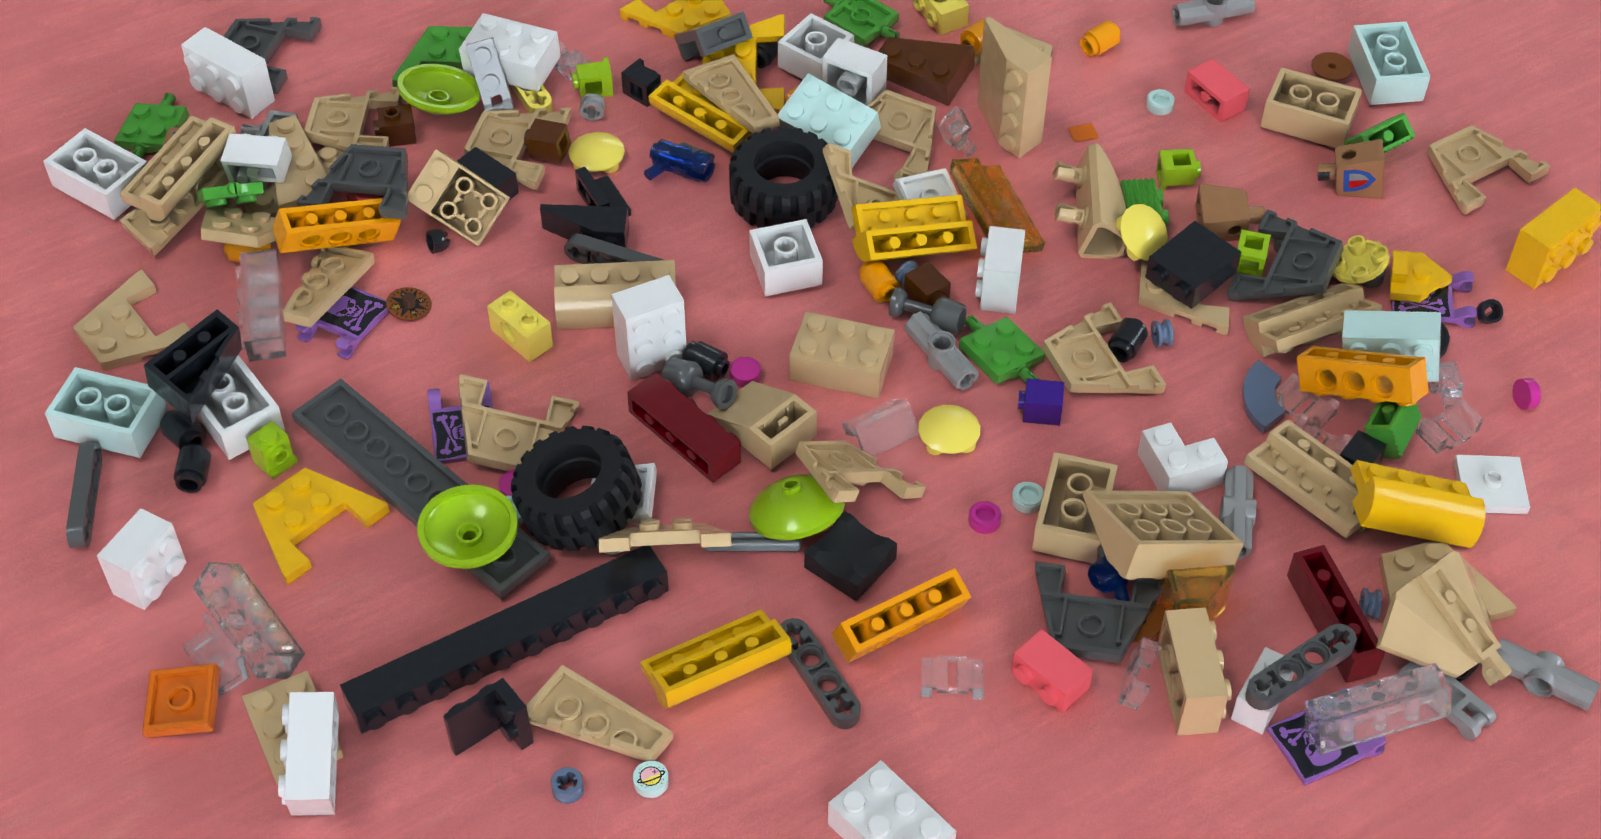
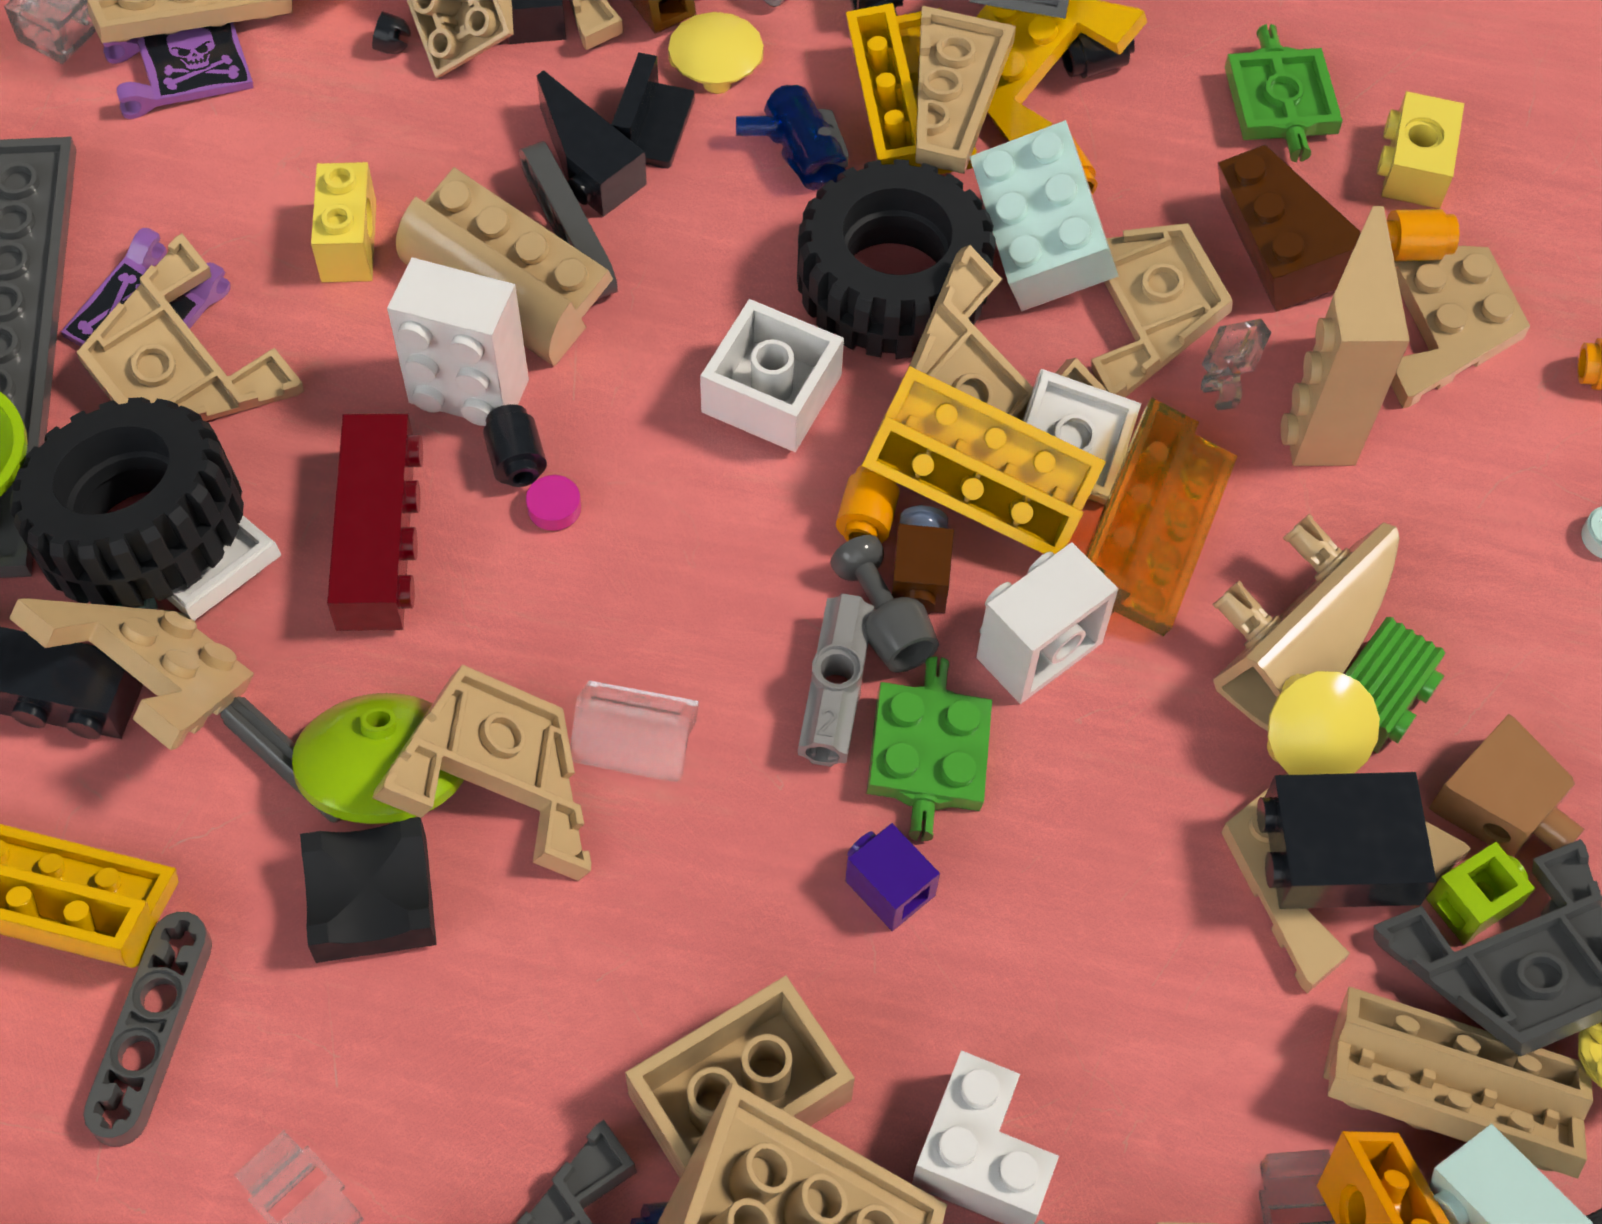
camera: 40 degrees right, 10 degrees up
(408, 304) = (270, 96): piece -> none
(688, 379) = (456, 454): dark grey piece -> none
(768, 422) = (483, 598): tan slope -> none
(806, 44) = (1154, 98): white brick -> none
(841, 354) = (692, 578): tan brick -> none
(855, 70) = (1160, 166): white brick -> none
(901, 615) = (319, 1042): light orange brick -> none
(949, 430) = (721, 809): light yellow dish -> none
(984, 517) = (623, 986): dark pink tile -> none
(1027, 497) = (711, 998): light aqua tile -> none
(1083, 132) = (1436, 495): orange sticker -> none
(1088, 363) = (1028, 865): tan wing -> none
(1127, 339) = (1128, 878): black brick -> none
(1162, 333) = (1193, 911): sand blue bush -> none
(1177, 168) = (1513, 660): lime brick -> none
(1260, 397) = (1239, 1139): sand blue tile -> none

